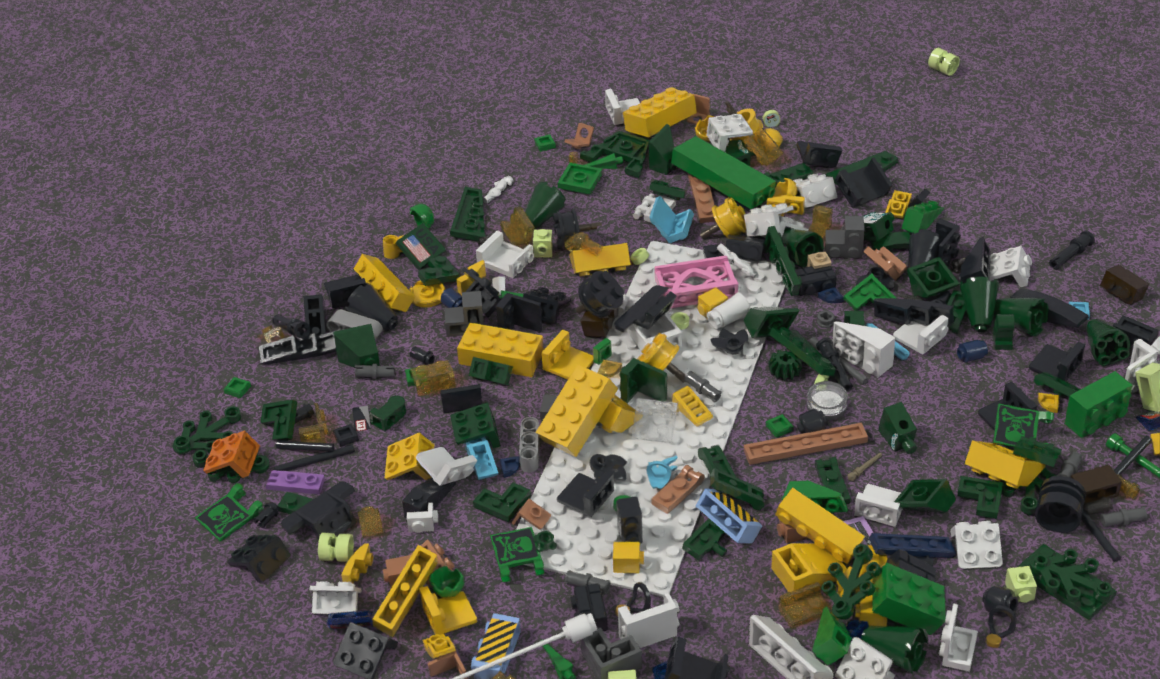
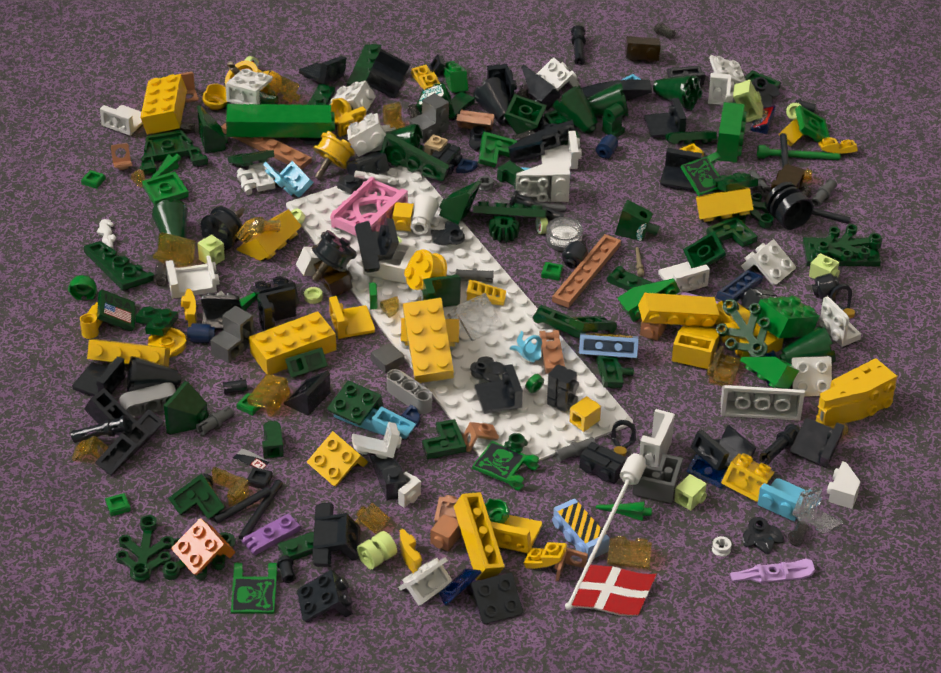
camera: 50 degrees left, 0 degrees up
(572, 324) = (313, 295): none -> yellowish green tile

